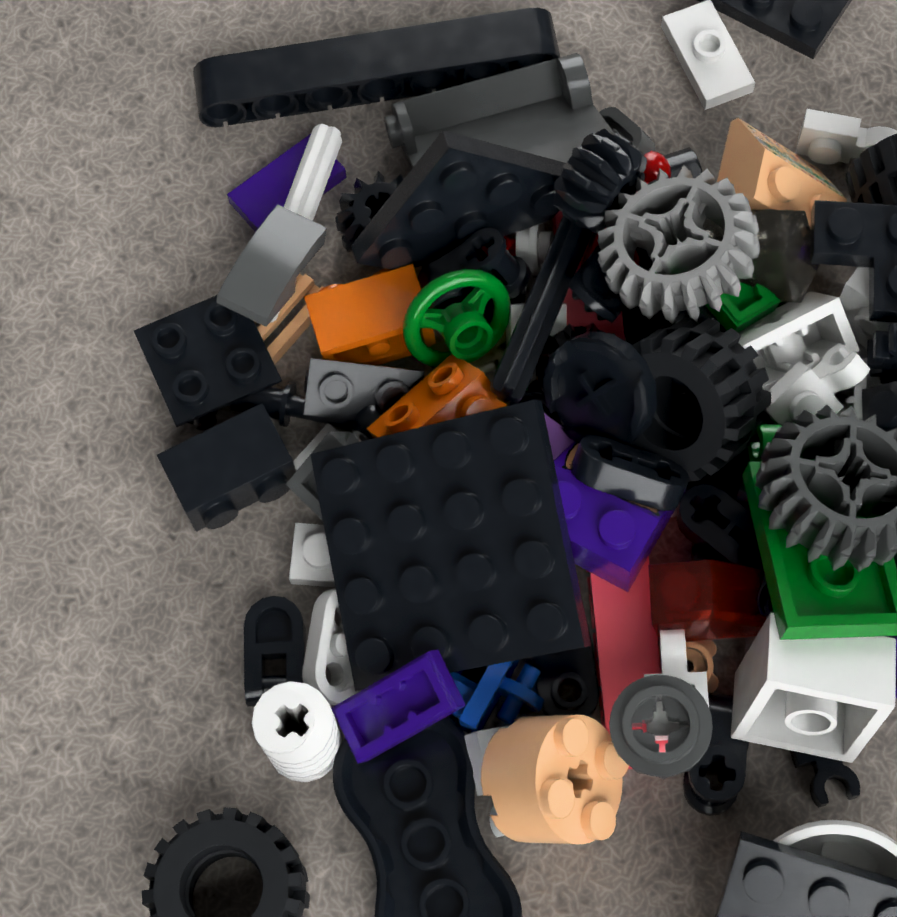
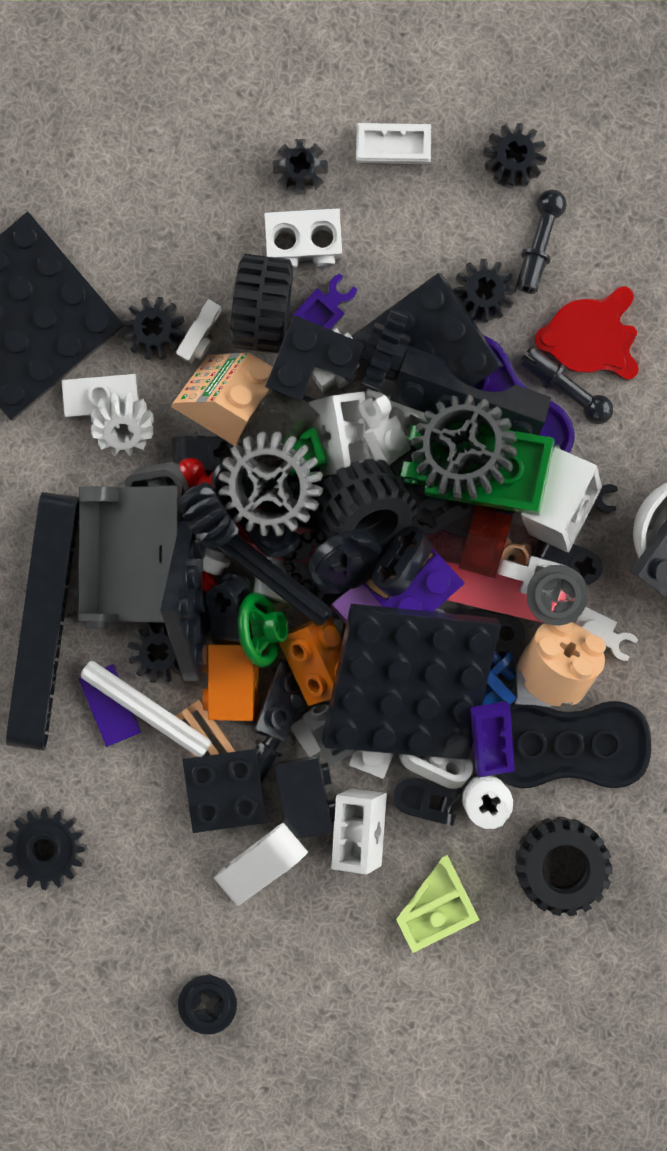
camera: 75 degrees left, 20 degrees up
(72, 181) = (31, 862): none -> black gear
(109, 720) = (437, 908): none -> yellowish green wing
(112, 429) = (260, 864): none -> white beam
(198, 558) = (358, 831): none -> white brick
(270, 265) = (184, 735): dark grey slope -> none
(624, 846) = (603, 627): none -> white plate
(681, 77) = (109, 422): none -> white gear
(826, 80) = (153, 341): none -> black gear

